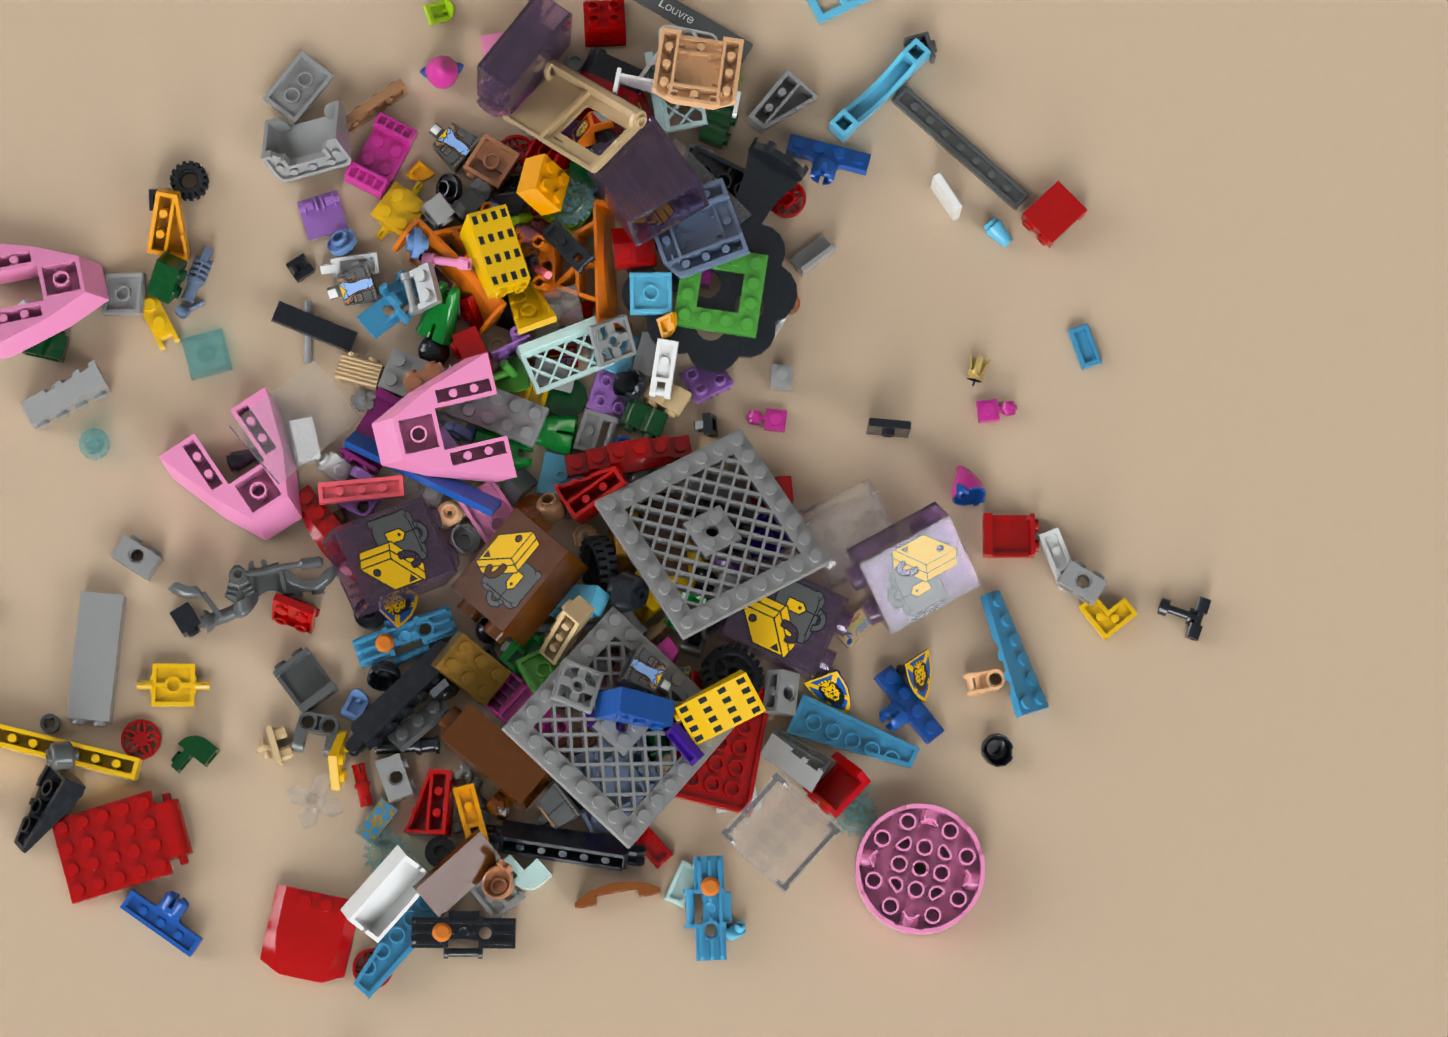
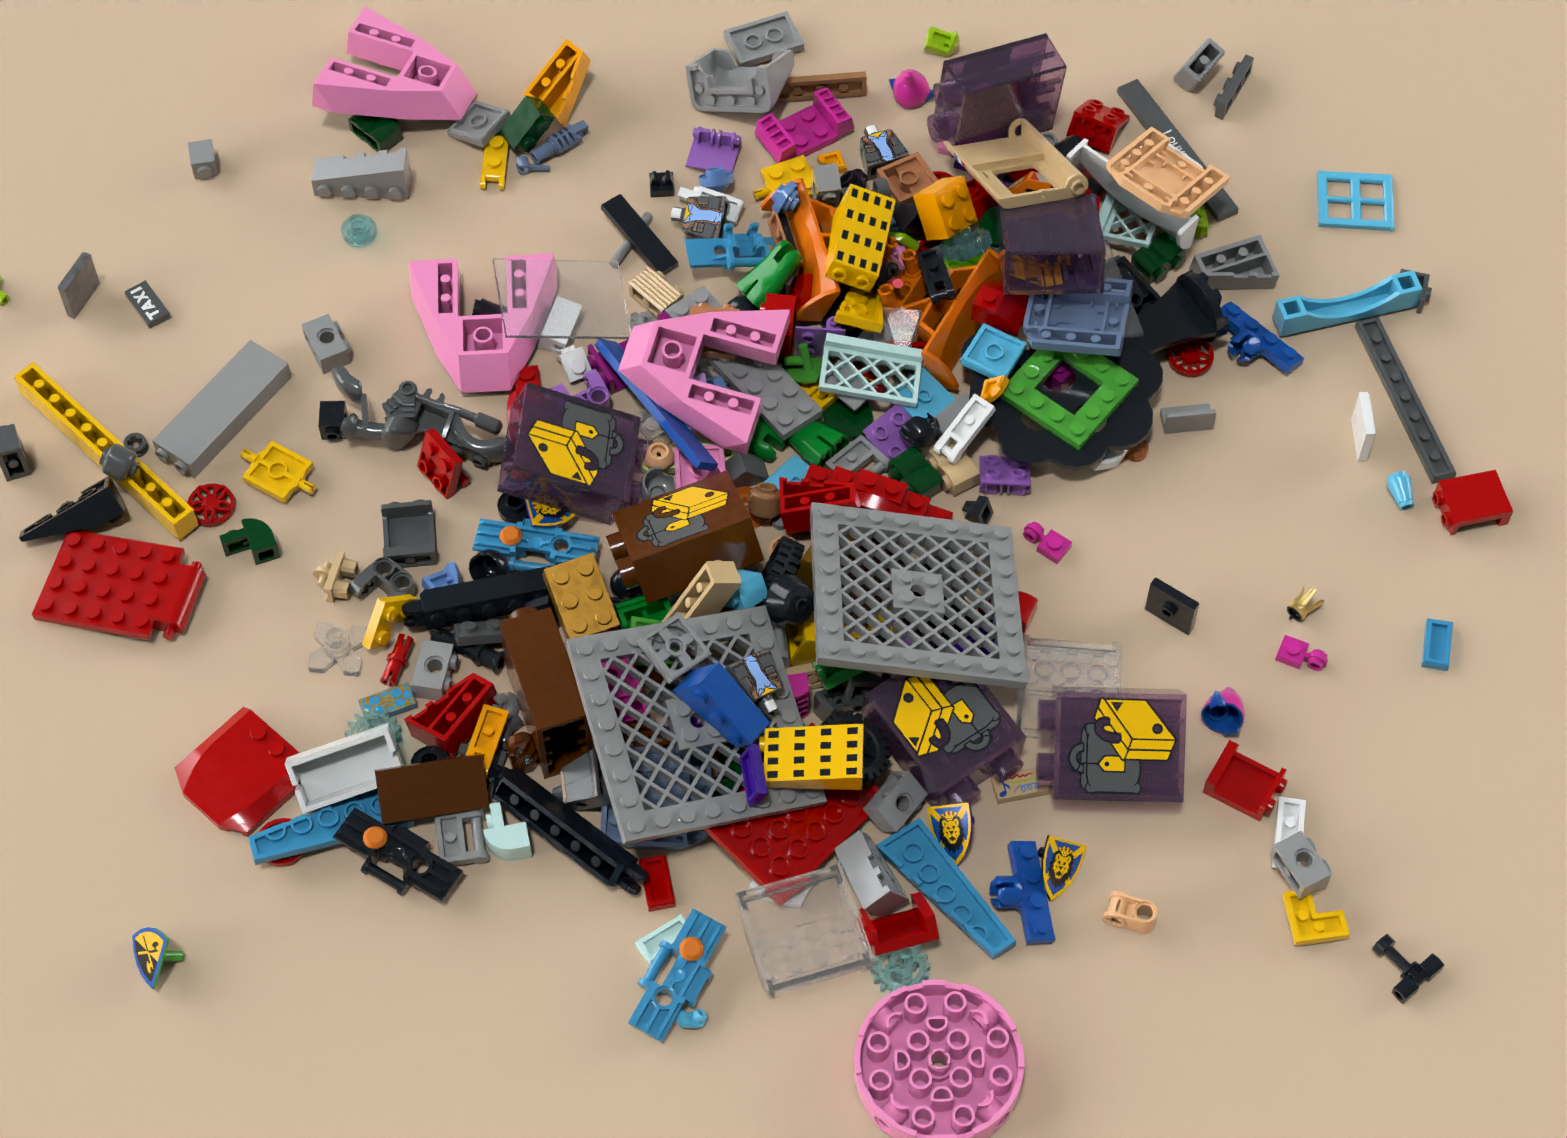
camera: 35 degrees right, 20 degrees down
(164, 919) = (108, 676): blue plate -> none
(189, 168) = (610, 74): black tyre -> none
(206, 354) = (520, 211): clear light blue plate -> none
(361, 490) = (583, 385): coral plate -> none
(426, 285) = (770, 240): light grey plate -> none
(461, 263) = (818, 232): bright pink bar -> none
(498, 881) = (469, 818): nougat piece -> none
(590, 898) = (556, 895): dark orange slope -> none
(597, 345) = (944, 382): light grey piece -> none
(781, 377) = (1084, 507): light grey brick -> none
(997, 750) = (1103, 989): black hair -> none
(1025, 689) = (1172, 941): dark azure wing -> none

